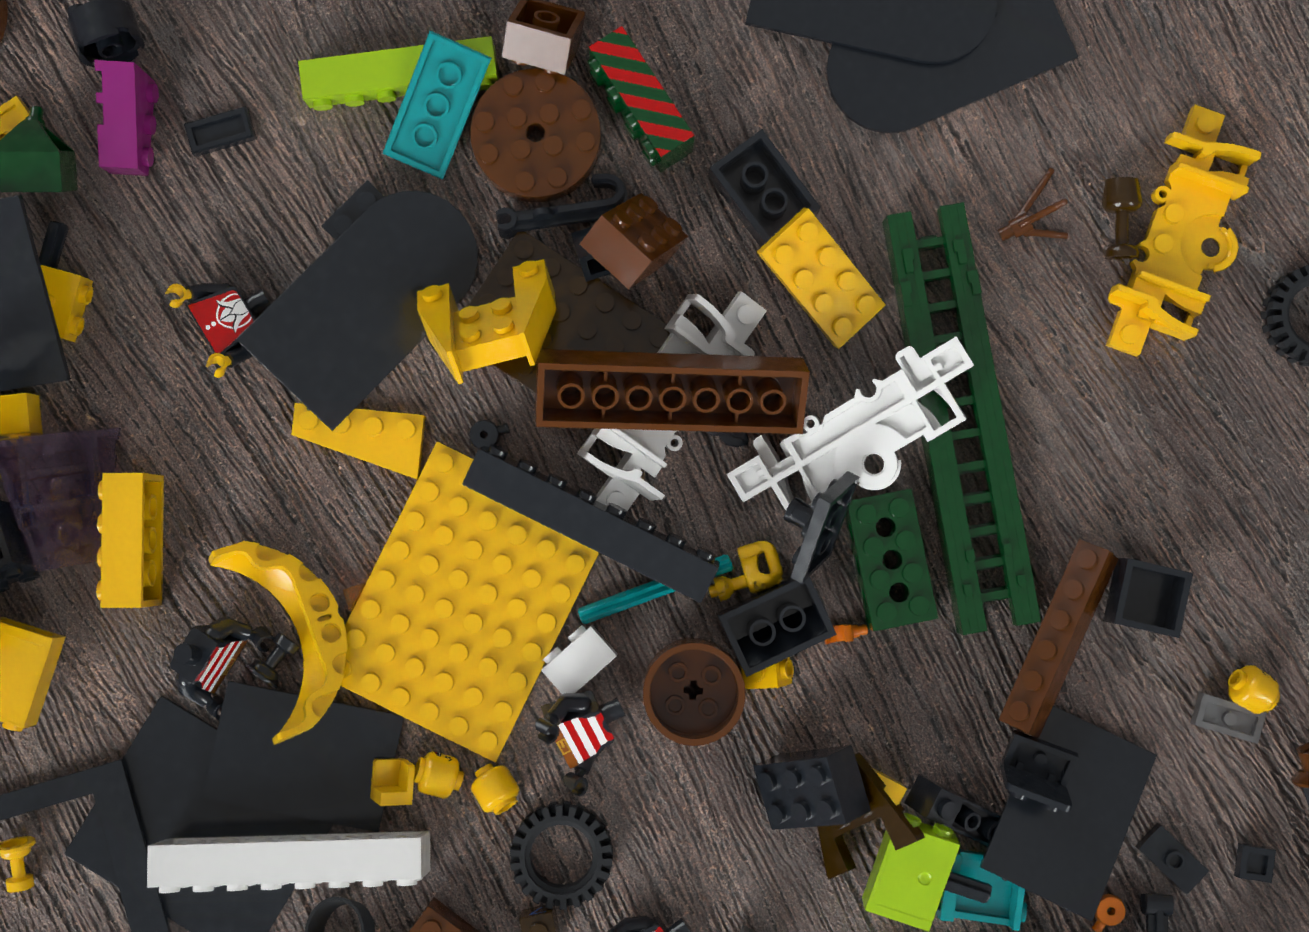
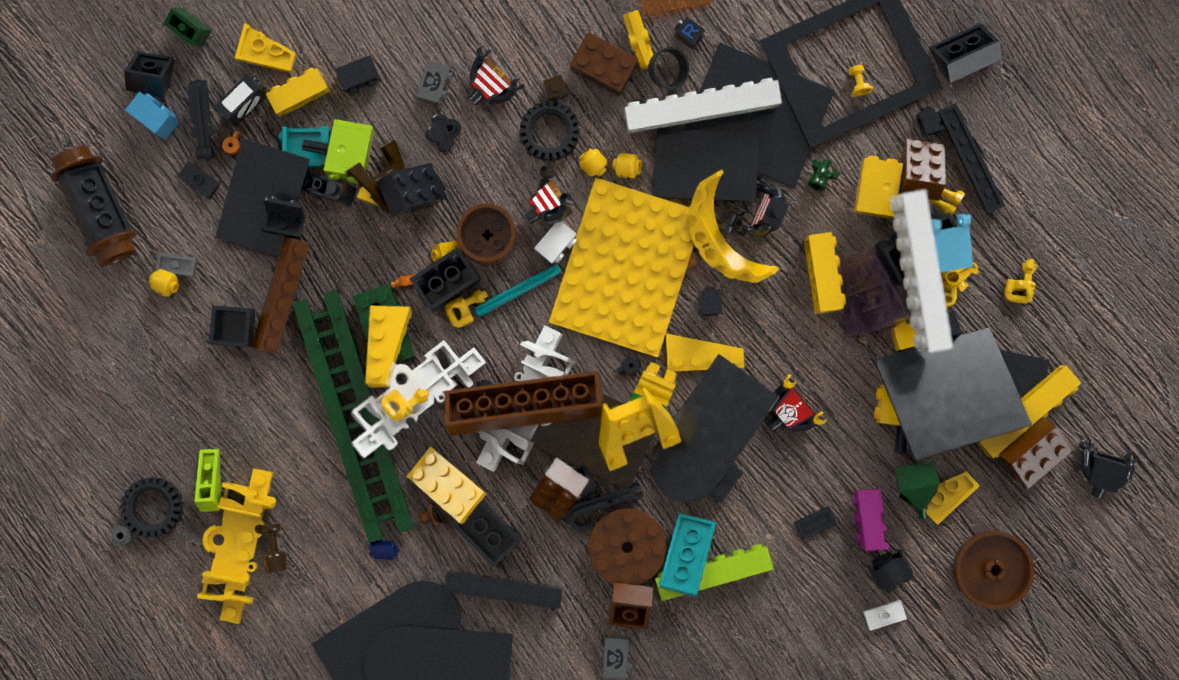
camera: 175 degrees right, 0 degrees up
(111, 708) = (821, 175): none -> dark green piece
(331, 520) = (710, 302): none -> black brick
(392, 782) = (652, 158): yellow panel -> none
(456, 401) = (659, 387): none -> yellow hips
(591, 522) = (559, 321): black brick -> none
(640, 99) = (567, 576): dark green brick -> none
(748, 878) = (441, 133): none -> black plate
(751, 95) = (503, 589): none -> black brick
(819, 524) = (427, 339): black plate -> none
(861, 232) = (426, 516): none -> reddish brown piece
(875, 414) = (402, 404): none -> yellow piece
(892, 537) = (385, 338): none -> yellow wedge
(939, 188) = (384, 550): none -> clear blue brick
(1022, 223) = (331, 536): reddish brown plant -> none
(1217, 345) = (208, 481): none -> lime slope
(1255, 862) = (151, 184): black plate -> none

